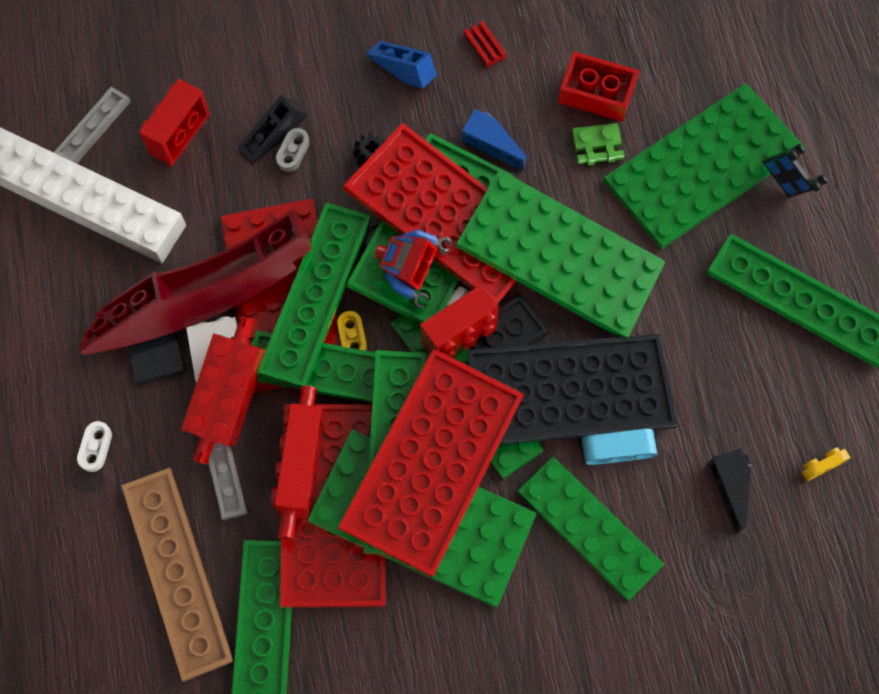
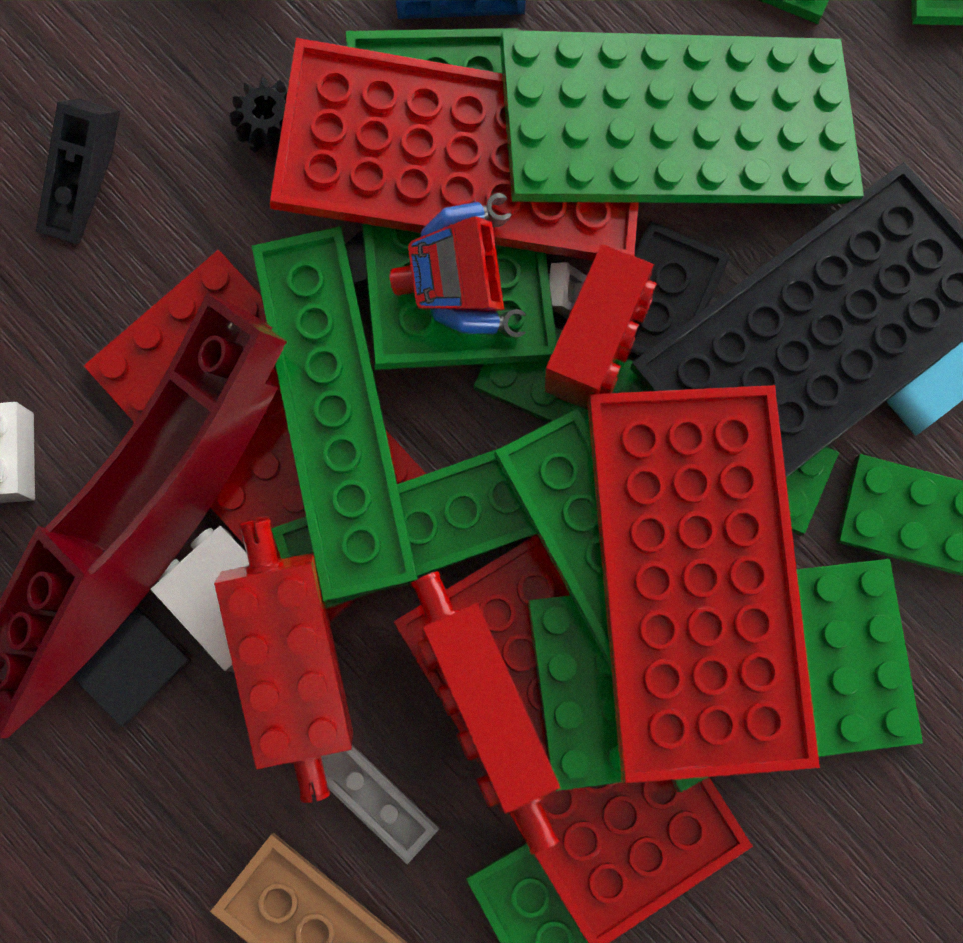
camera: 30 degrees left, 10 degrees up
(92, 447) = (118, 873): white plate -> none
(291, 151) = (134, 188): light grey plate -> none
(351, 336) = (427, 441): yellow plate -> none

